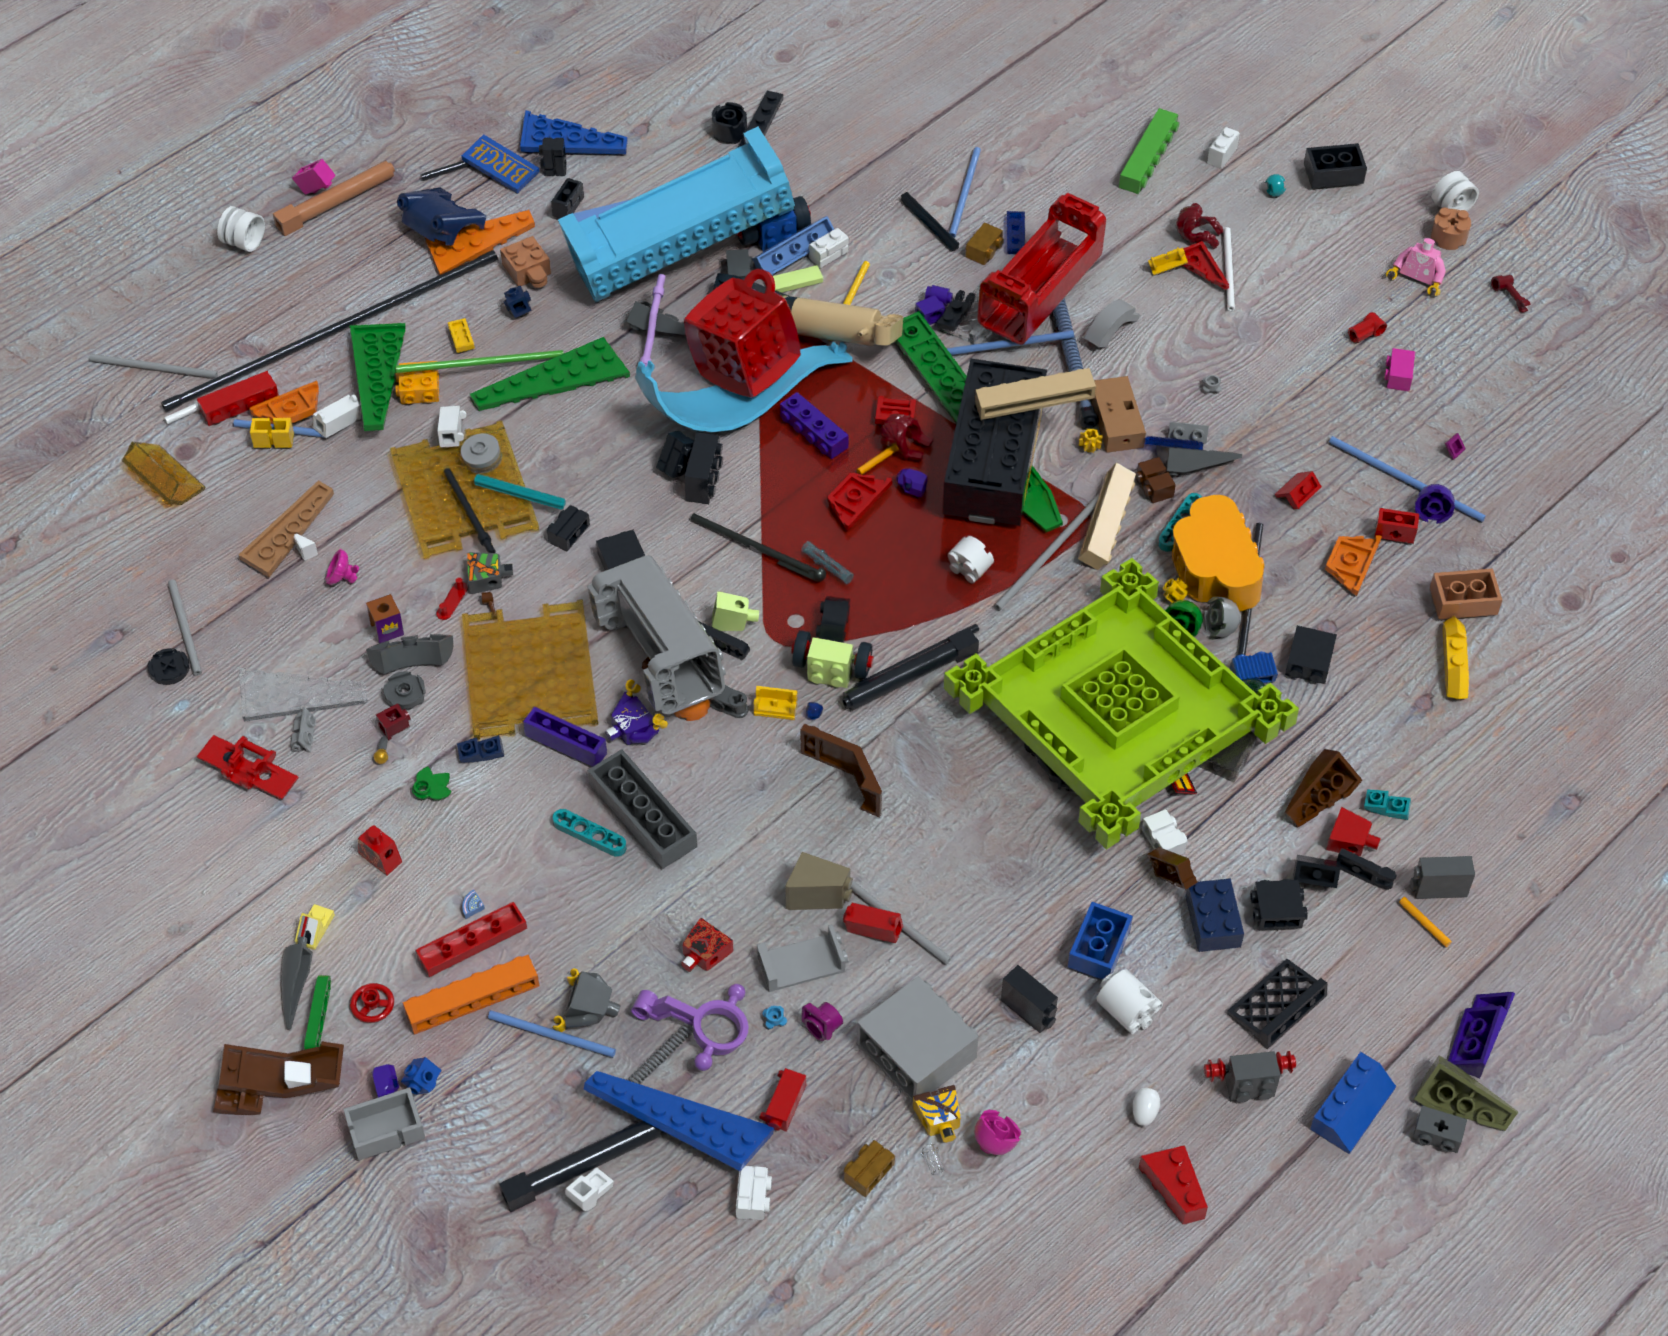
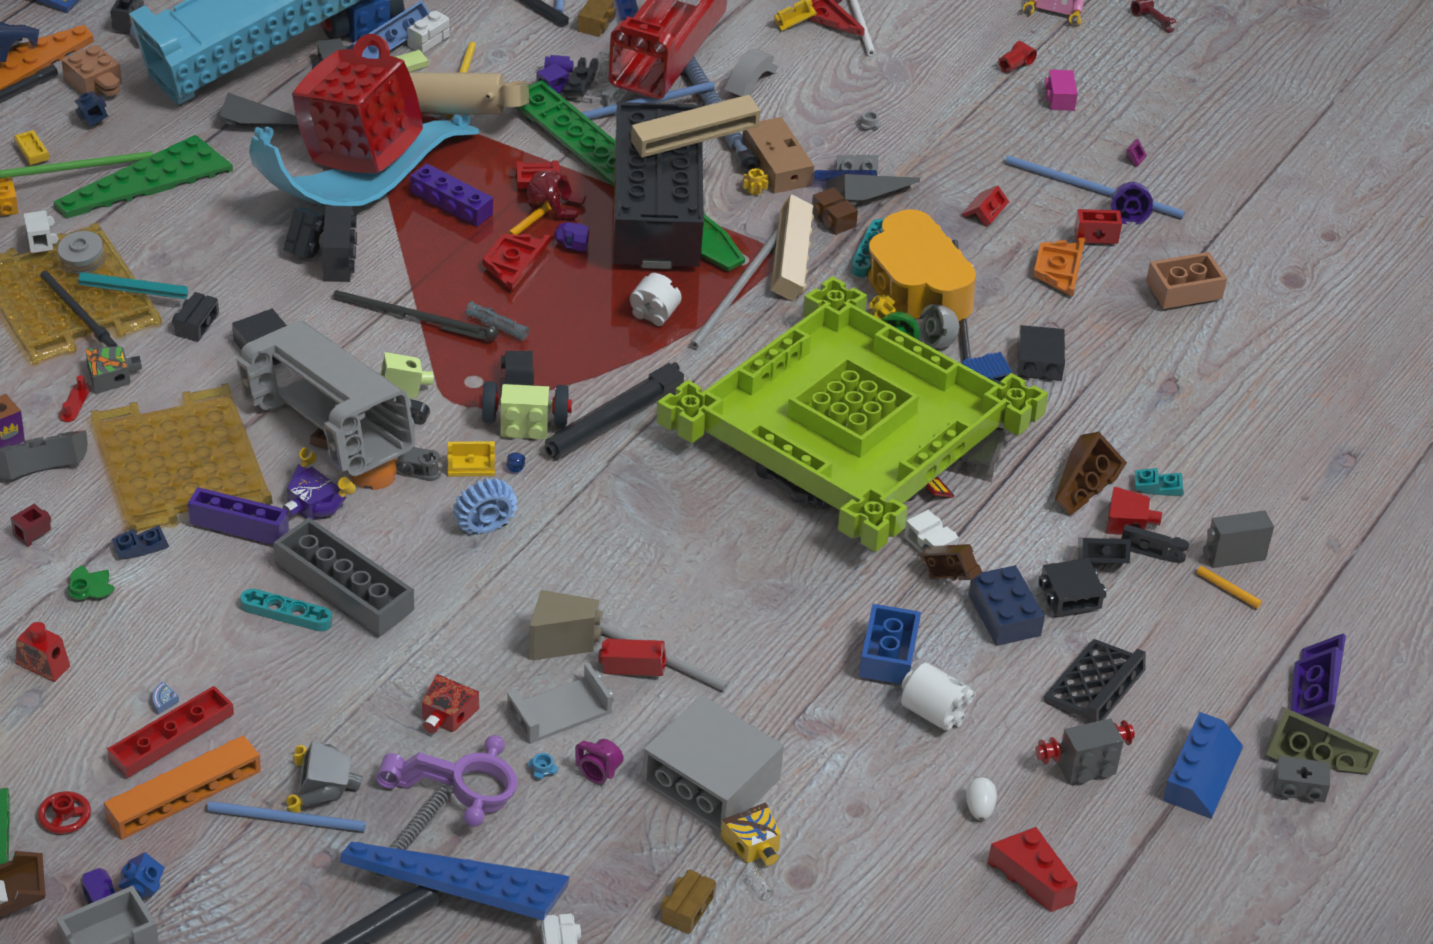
camera: 15 degrees left, 10 degrees down
(381, 755) = (23, 561): pearl gold piece -> none
(407, 700) = (49, 489): dark grey plate -> none
(487, 598) = (116, 394): reddish brown hand -> none
(658, 292) = (252, 82): lavender bar -> none
(775, 755) = (485, 506): none -> light blue gear
(785, 1100) = (575, 845): red brick -> none
(844, 757) = (567, 501): reddish brown windscreen -> none
(996, 1134) = (823, 846): dark pink cylinder -> none
(1029, 999) = (827, 708): black brick -> none
(1455, 658) = (1191, 341): yellow brick -> none

